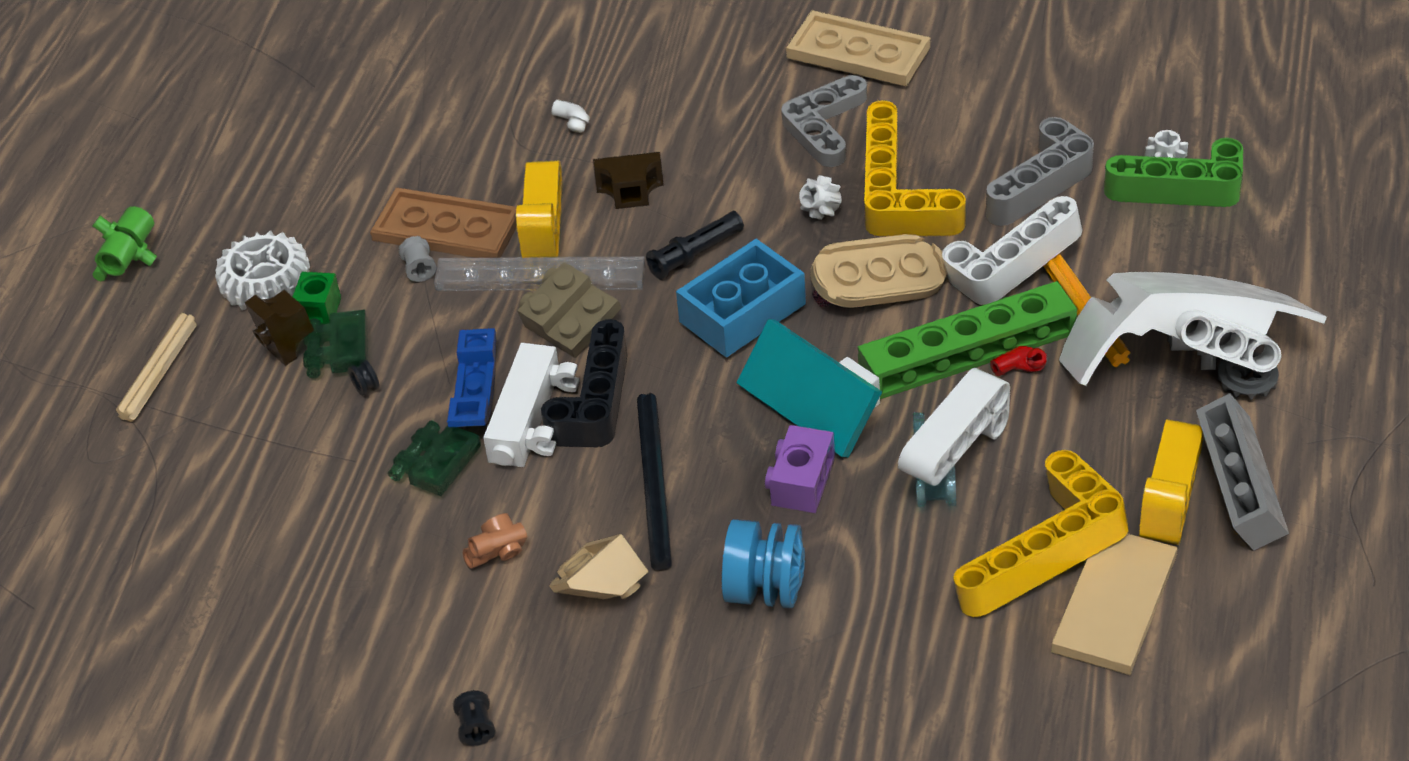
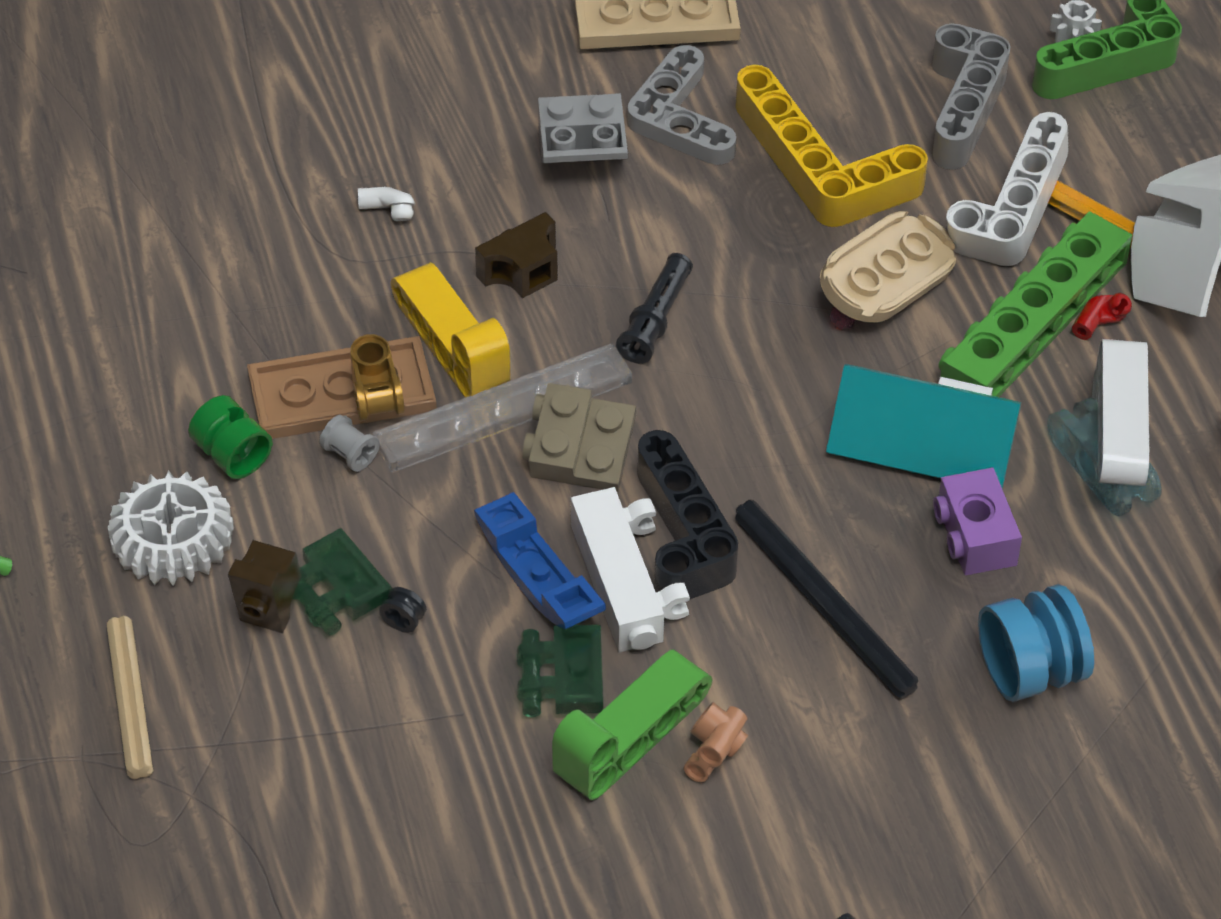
camera: 35 degrees left, 5 degrees up
(318, 294) = (267, 524): green brick -> none
(342, 227) = (230, 436): none -> green wheel
(441, 510) = (602, 749): none -> bright green beam
(457, 221) = (374, 377): none -> pearl gold piece
(601, 570) = (856, 720): tan slope -> none
(734, 107) = (581, 128): none -> light grey slope
(739, 295) = (768, 352): dark azure brick -> none
(820, 197) = (747, 203): white gear -> none

